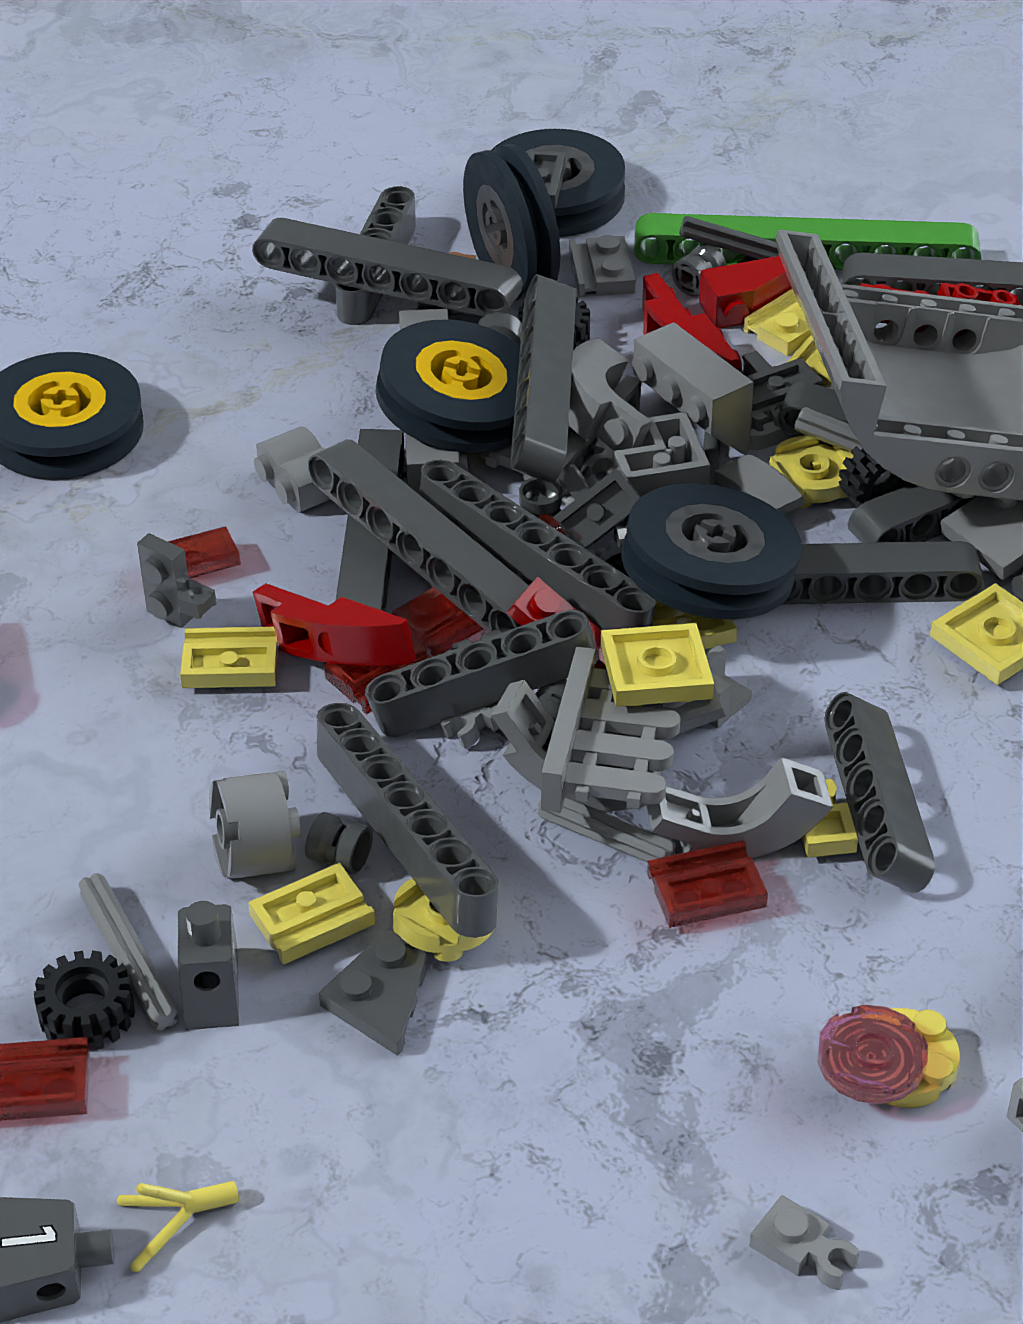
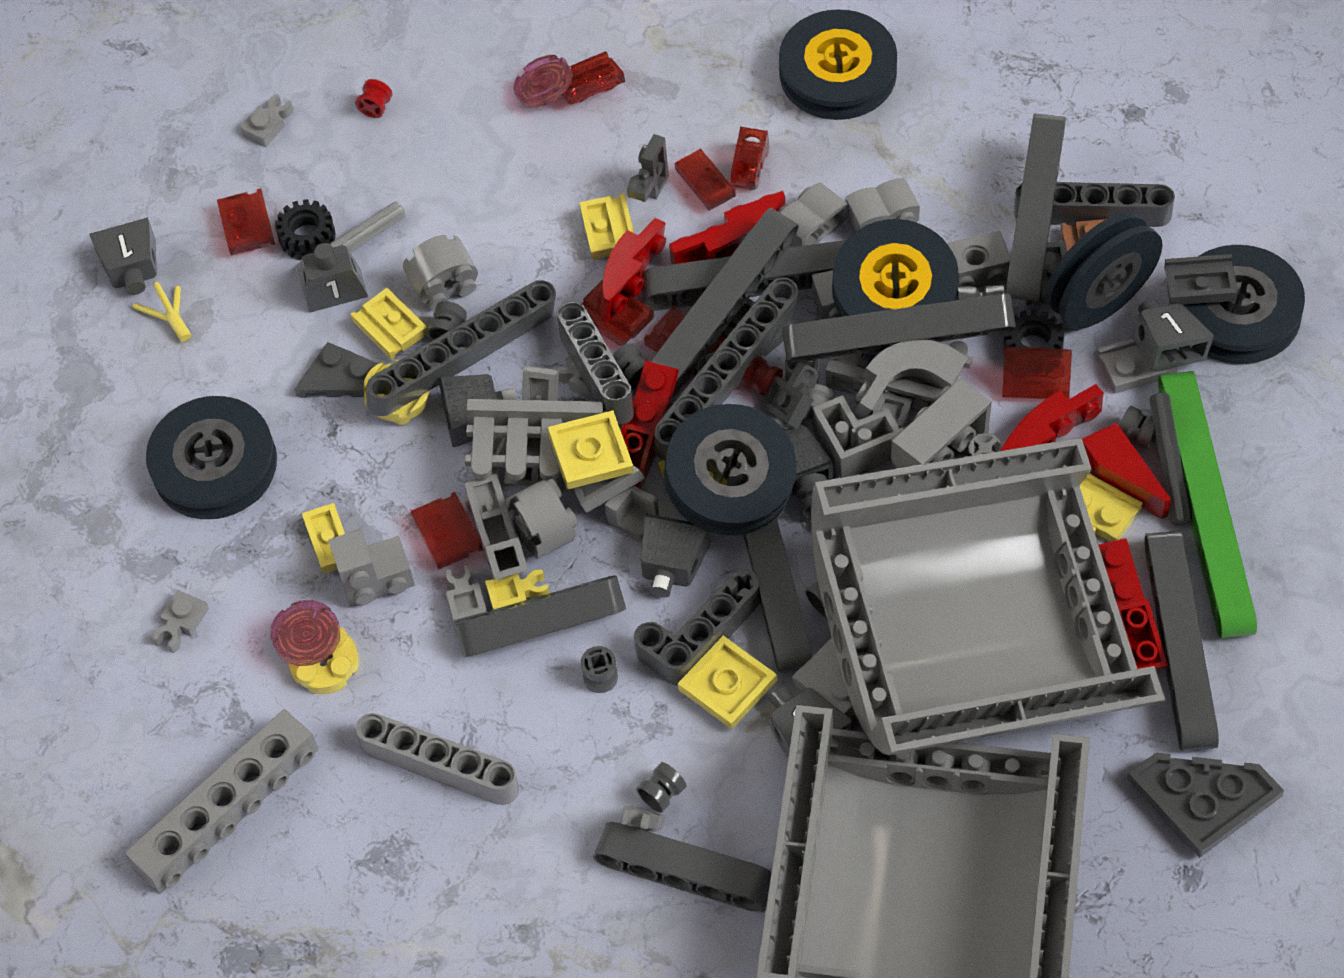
camera: 85 degrees right, 15 degrees up
(176, 506) = (749, 157): none -> clear red leg
(295, 535) = (725, 238): none -> red slope
(316, 404) = (887, 201): none -> light grey brick
(451, 1162) = (200, 431): none -> black wheel
(505, 826) = (454, 394): none -> dark grey torso
(595, 217) = (1170, 336): none -> dark grey torso
(606, 317) = (1036, 372): none -> clear red plate
(691, 1024) = (322, 525): none -> light yellow plate
(723, 751) = (542, 518): none -> light grey brick
(771, 968) = (370, 569): none -> light grey brick
(794, 657) = (671, 552): none -> dark grey torso
(830, 873) = (464, 599): none -> light grey plate
(945, 660) = (736, 597): none -> dark grey beam
(967, 745) = (605, 675): none -> dark grey wheel

